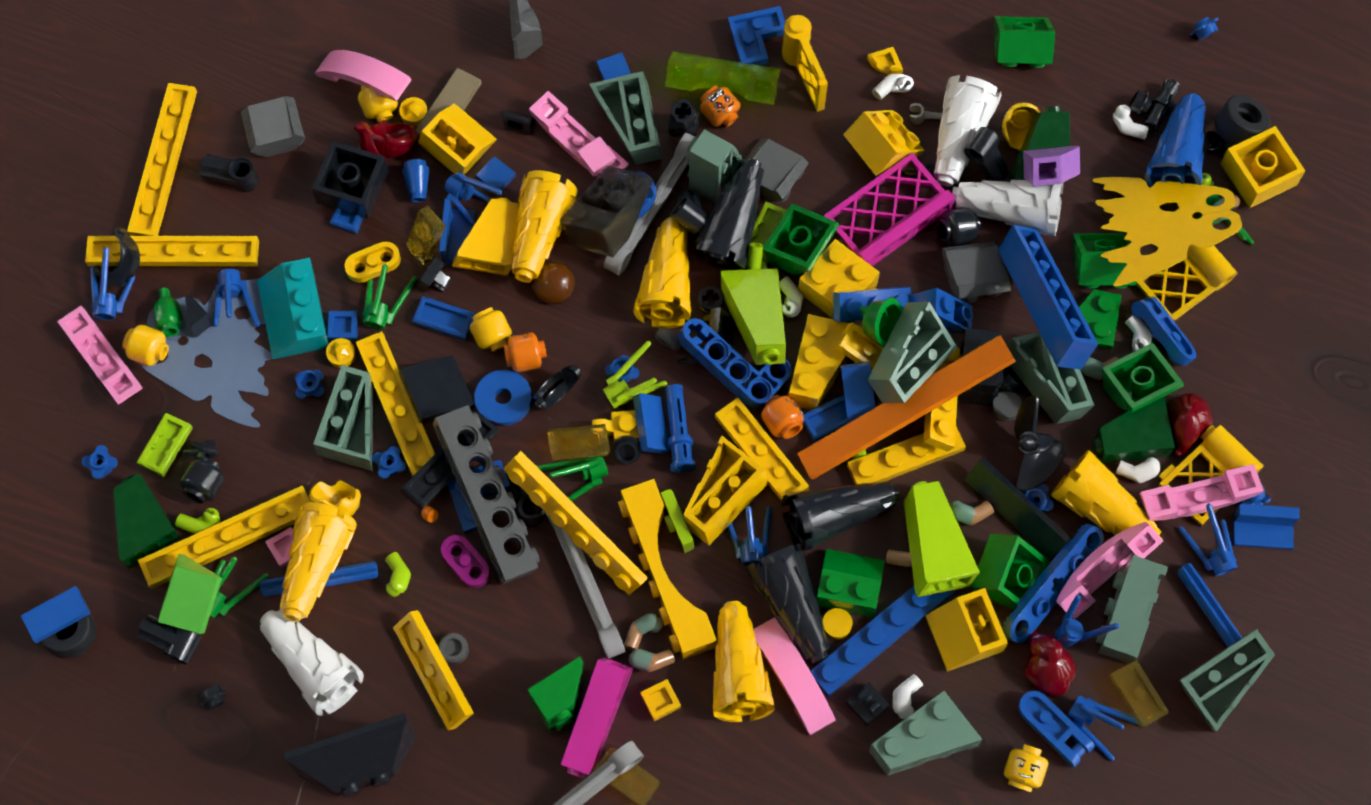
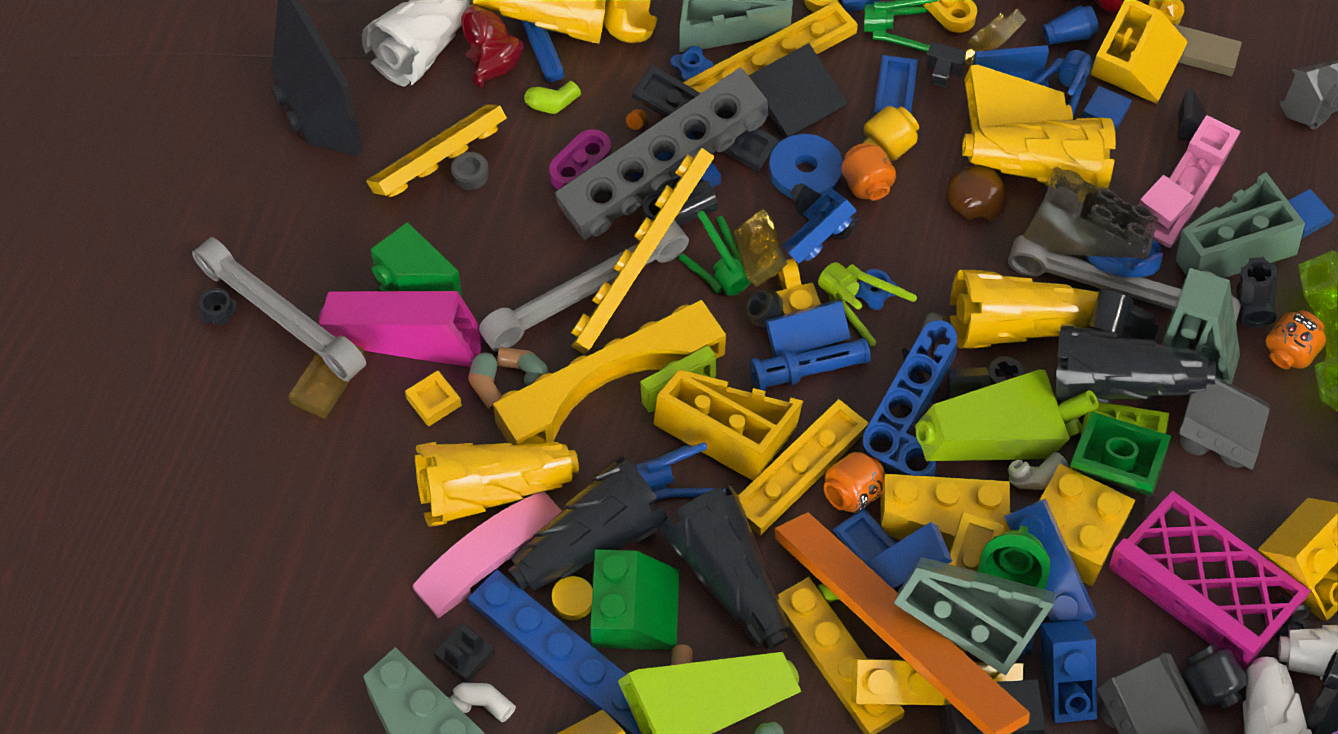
camera: 80 degrees right, 10 degrees down
(340, 615) = (490, 44): none -> dark red hair
(578, 388) = (825, 216): none -> blue plate

